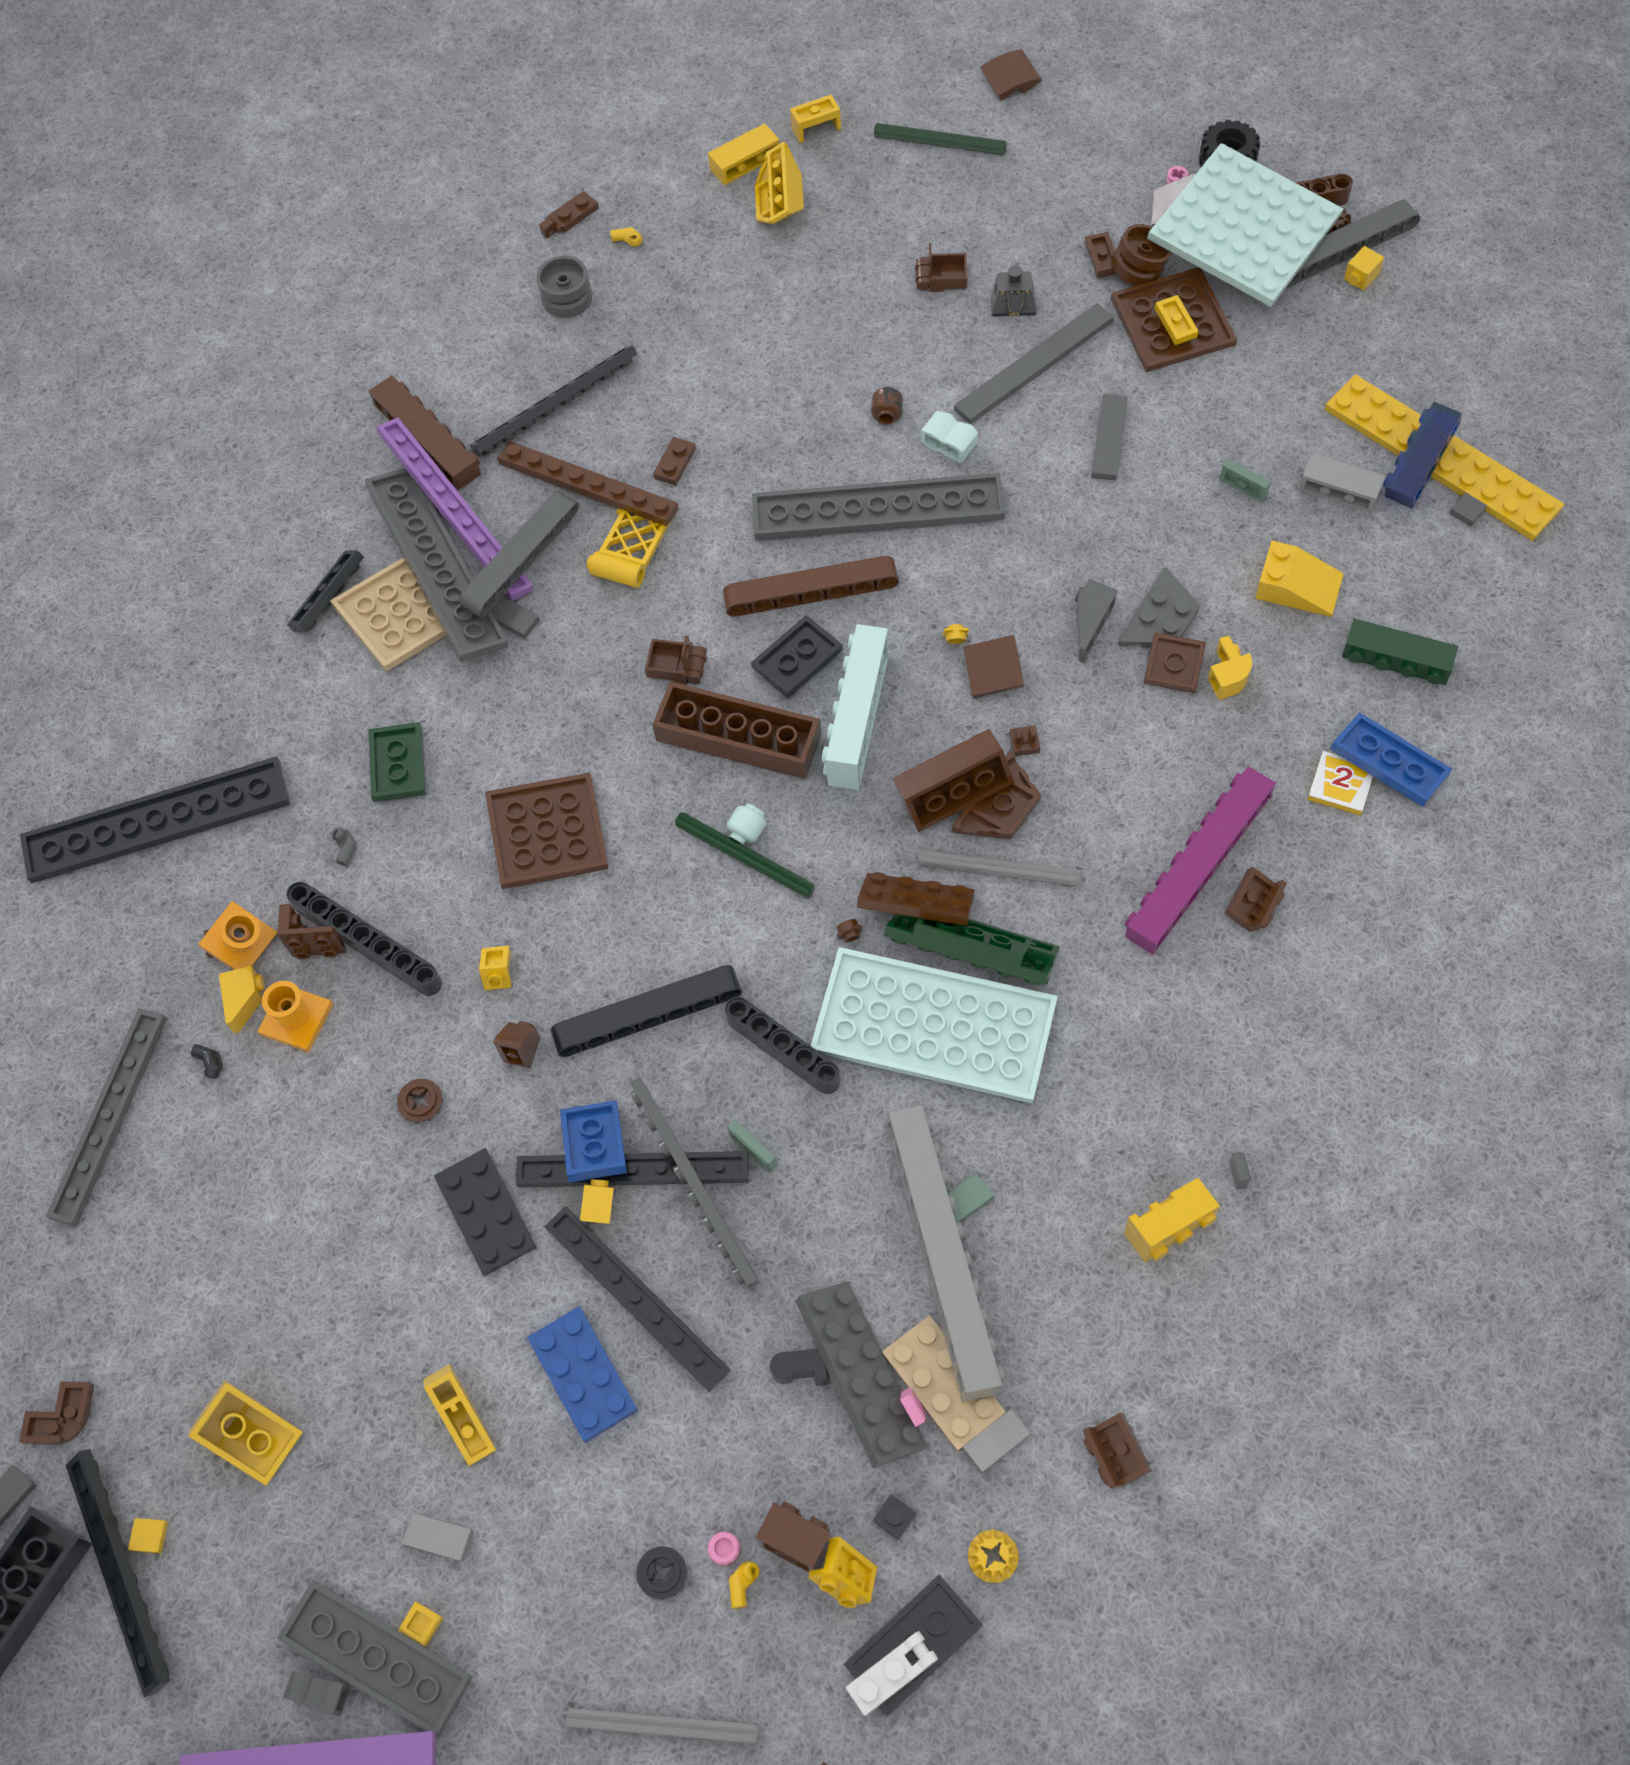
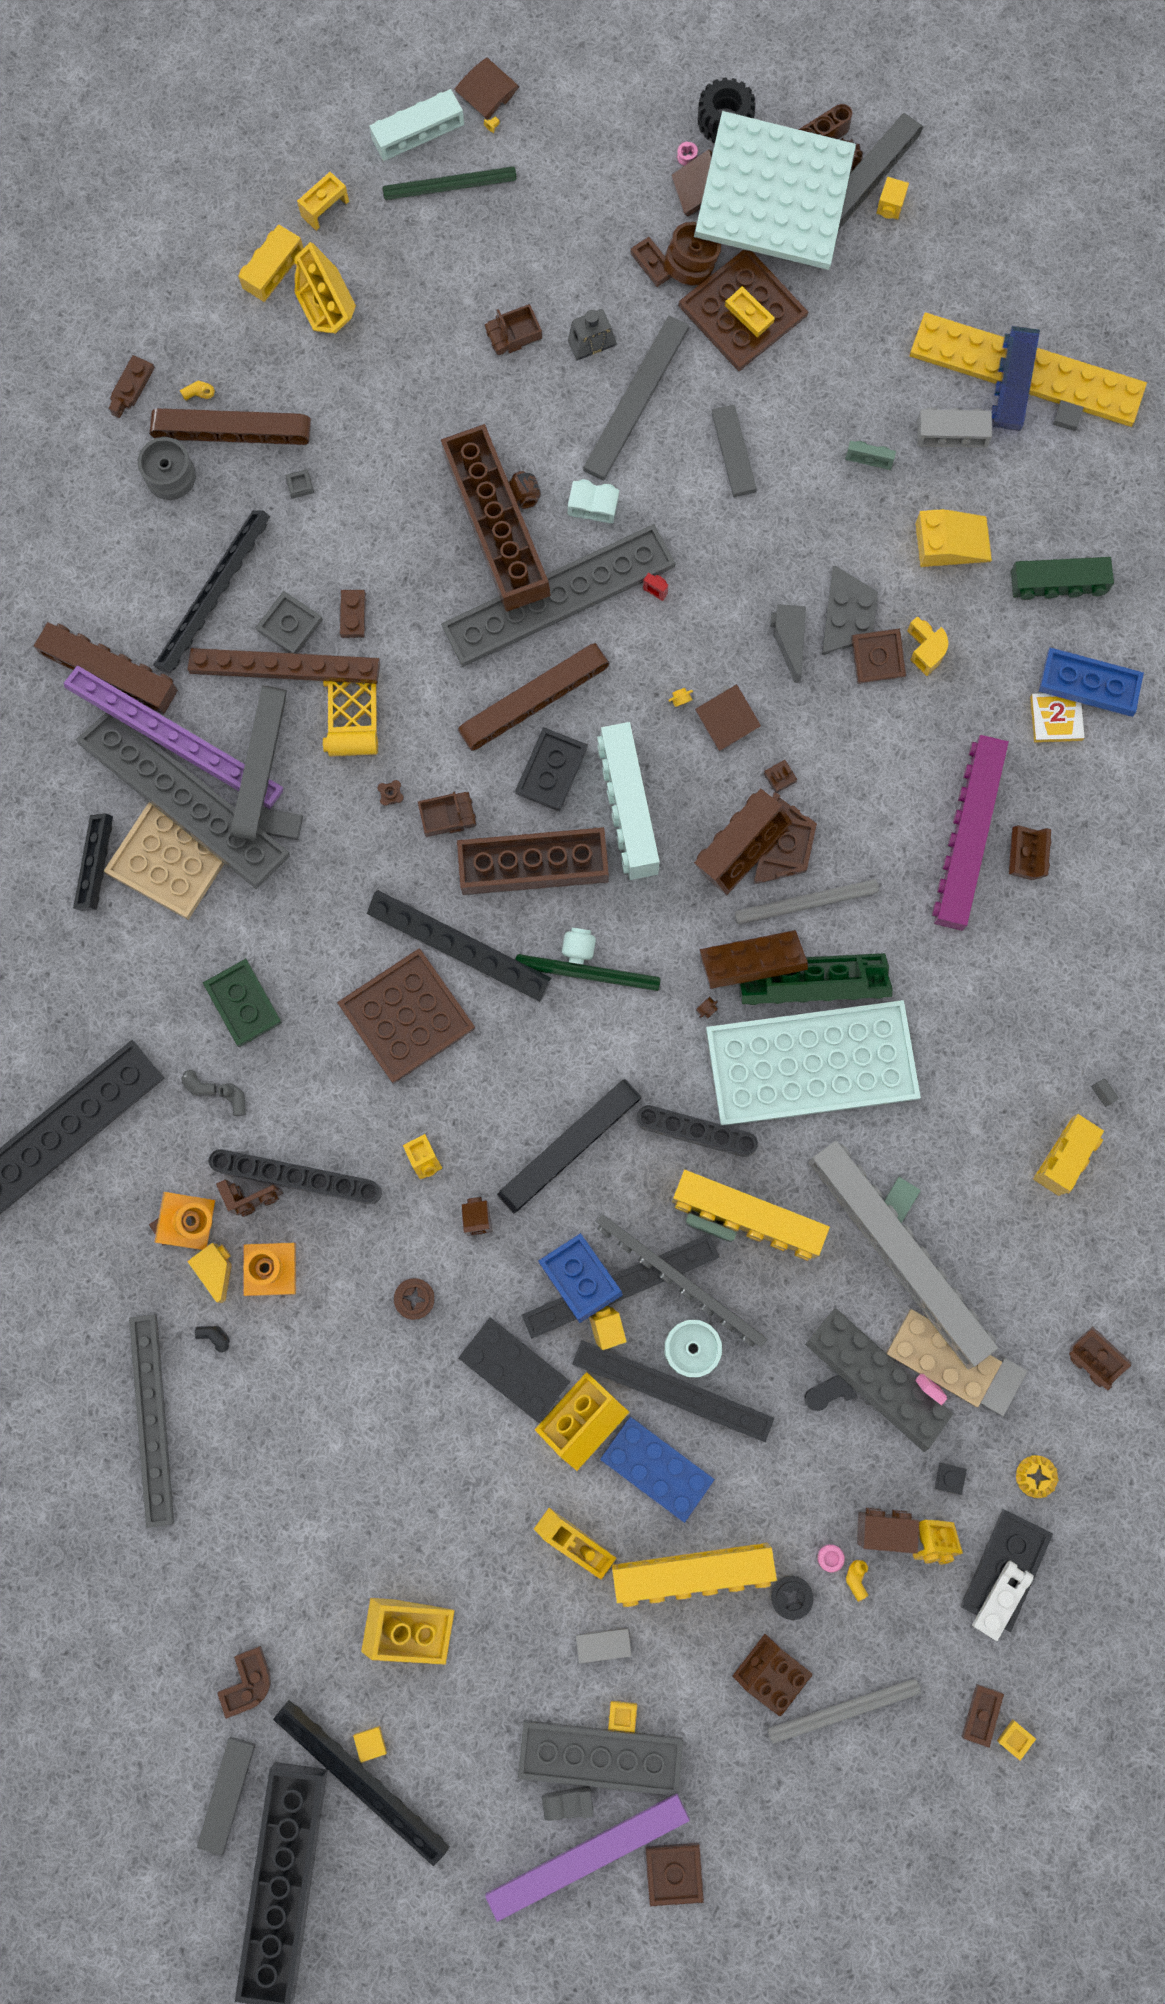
camera: 25 degrees left, 15 degrees up
(313, 821) = (195, 1087): none -> dark grey arm
(526, 1290) = (581, 1421): none -> yellow slope
(564, 1492) = (694, 1573): none -> yellow brick
(601, 1651) = (772, 1675): none -> reddish brown bracket
(610, 449) = (289, 623): none -> dark grey plate
(630, 785) = (459, 945): none -> black plate
(631, 631) = (387, 799): none -> reddish brown plate
(643, 272) = (230, 426): none -> reddish brown beam
(680, 338) = (299, 483): none -> dark grey tile
(686, 1247) = (708, 1351): none -> light aqua wheel
(797, 1145) = (751, 1215): none -> yellow brick
(845, 418) = (495, 518): none -> reddish brown brick
(931, 84) = (417, 124): none -> light aqua brick
(976, 528) = (656, 586): none -> red plate
(1002, 104) = (491, 124): none -> yellow piece

